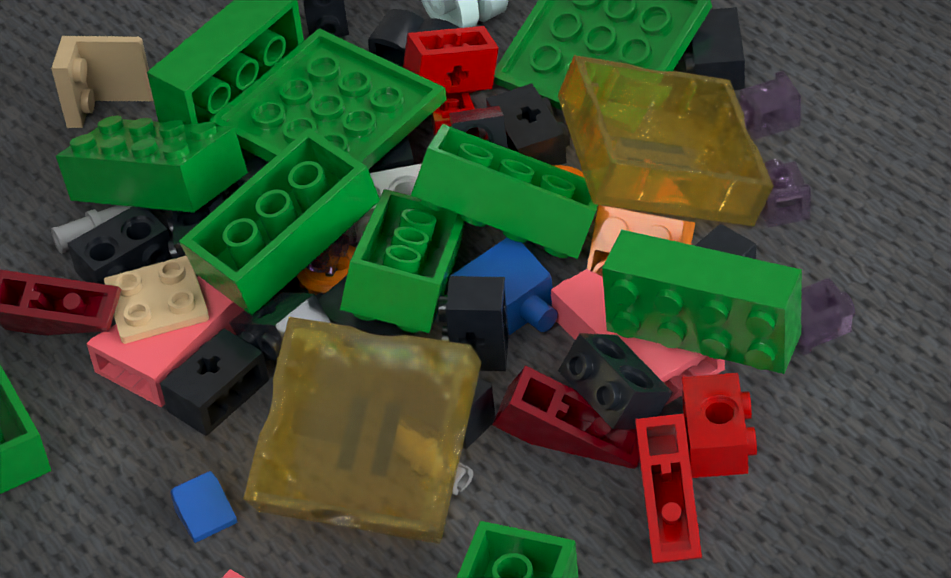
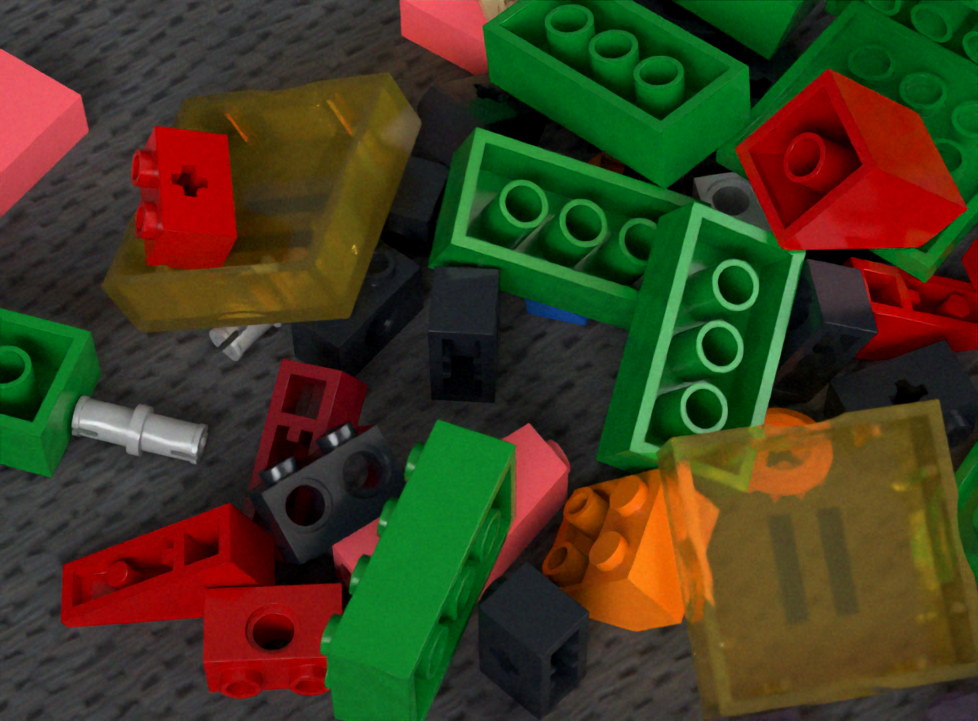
camera: 85 degrees right, 10 degrees up
(203, 506) = (217, 72): blue slope -> none
(214, 381) = (410, 54): black brick -> none
(359, 472) = (185, 198): none -> red brick
(394, 93) = (849, 171): none -> red slope
(526, 283) = (557, 381): blue torso -> none
(544, 507) = (139, 429): none -> light grey pin

